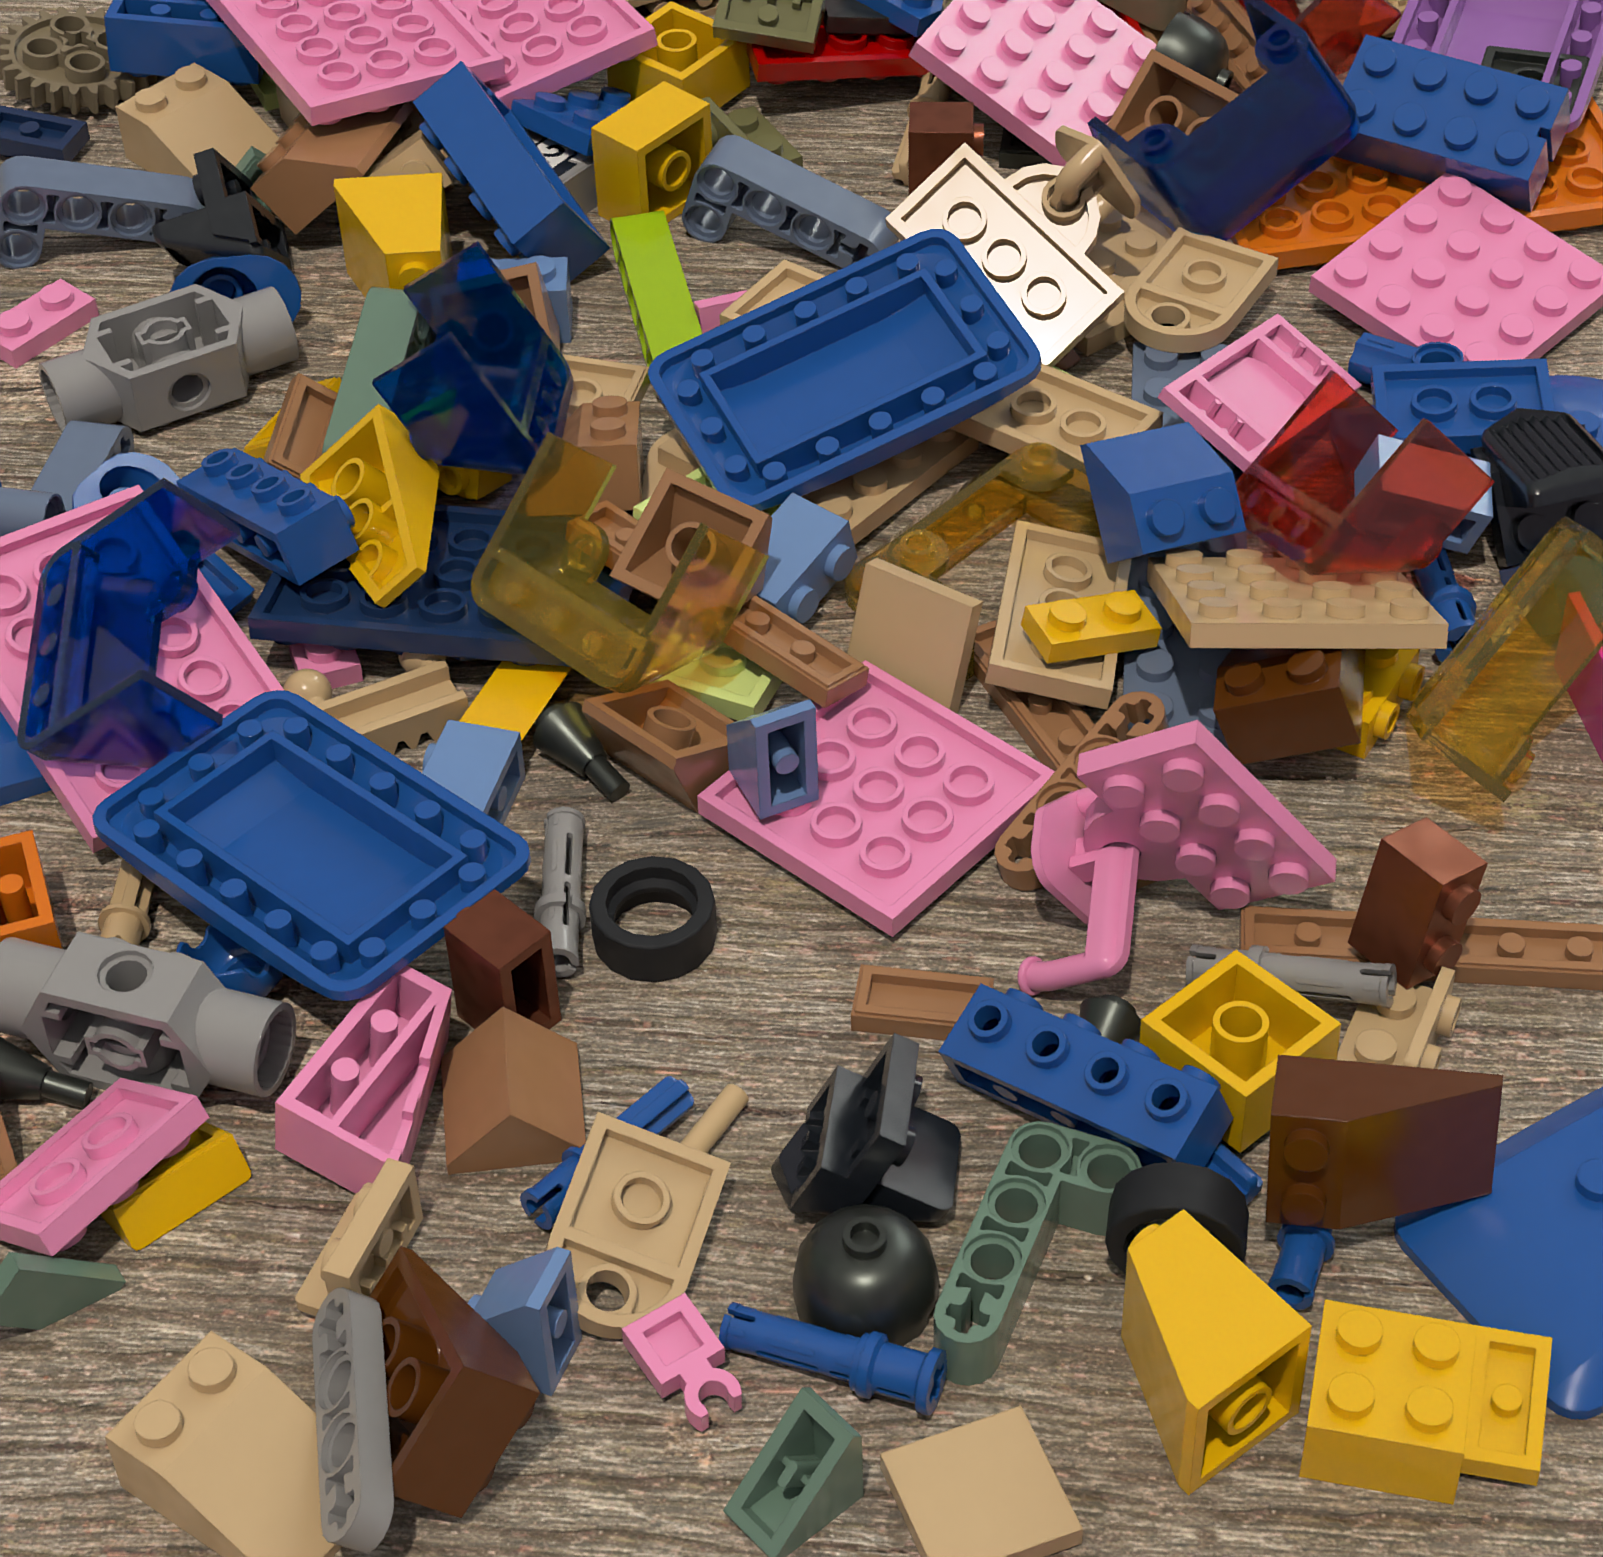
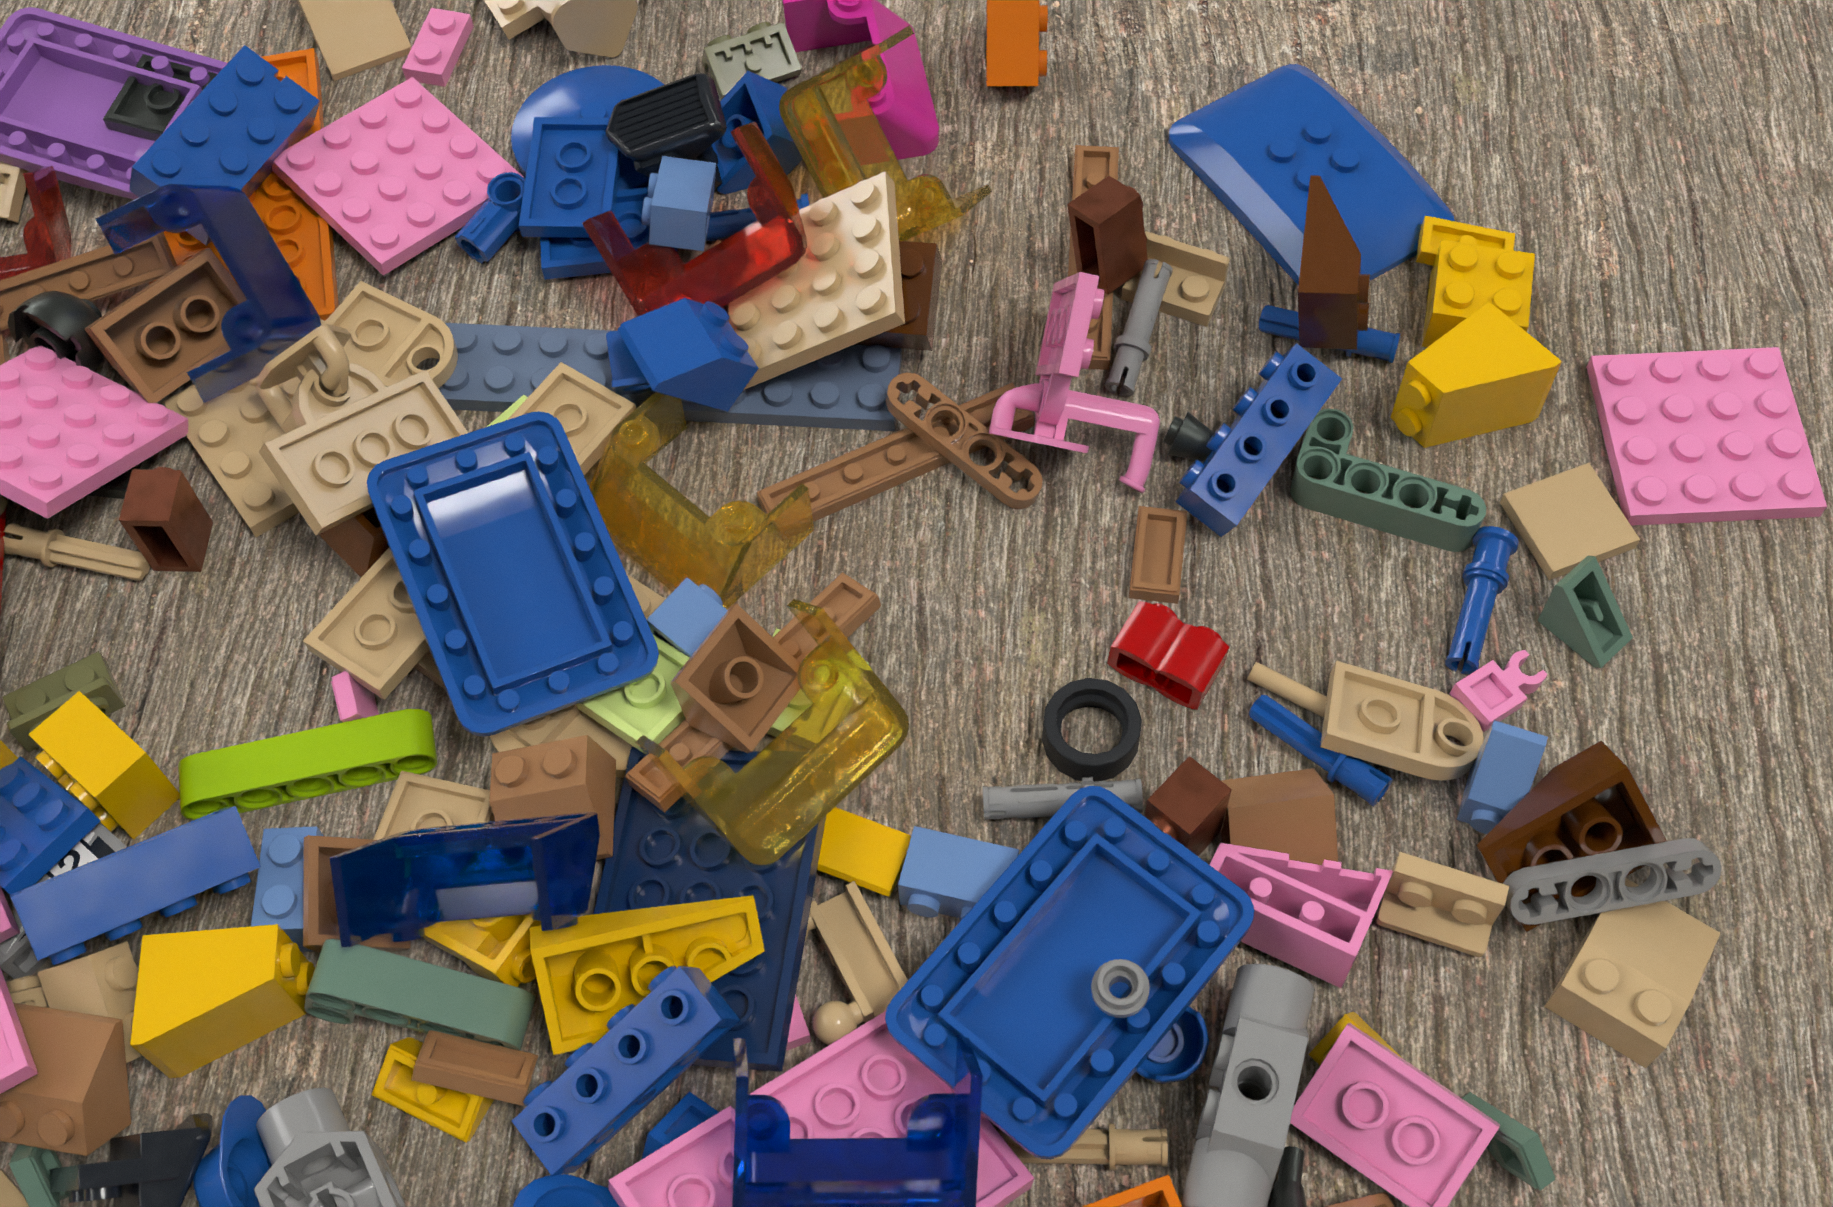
camera: 90 degrees left, 15 degrees up
(260, 857) = (1120, 971): none -> light grey plate
(569, 738) = (896, 800): pearl dark grey cone -> none
(663, 737) = (931, 707): medium nougat slope -> none
(755, 993) = (1168, 654): none -> red brick
(776, 757) = (957, 623): medium blue slope -> none
(784, 200) = (173, 674): sand blue beam -> none
(866, 1274) = (1414, 583): pearl dark grey cylinder -> none
(872, 1144) = (1317, 577): black piece -> none
(900, 805) = (961, 580): bright pink plate -> none
(915, 630) = (810, 539): tan tile -> none
(1045, 568) = (771, 449): tan plate -> none
(1090, 626) = (807, 420): yellow plate -> none
(1165, 1190) = (1373, 392): black tyre -> none
(1234, 1029) = (1212, 354): yellow brick -> none
(1251, 388) = (532, 304): bright pink slope -> none

